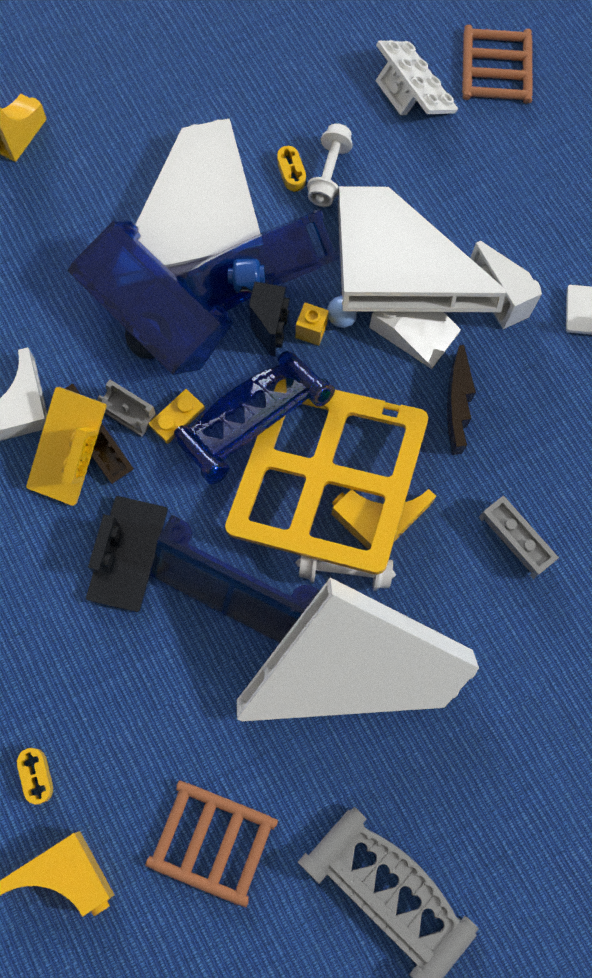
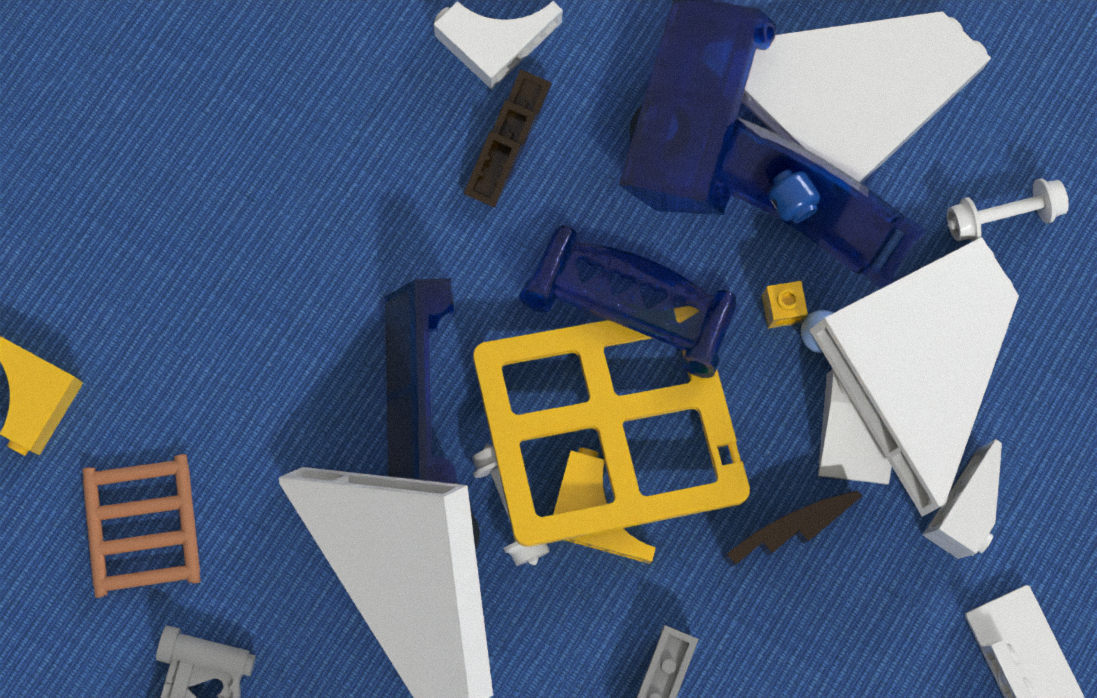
camera: 60 degrees right, 5 degrees up
(28, 778) = (106, 298): yellow beam -> none
(66, 446) = (473, 120): yellow bracket -> none
(125, 553) = (393, 252): black bracket -> none
(127, 408) = (557, 158): light grey hinge -> none
(177, 413) = (584, 216): yellow plate -> none
(269, 314) = (764, 248): black slope -> none
(296, 168) = (983, 172): yellow beam -> none

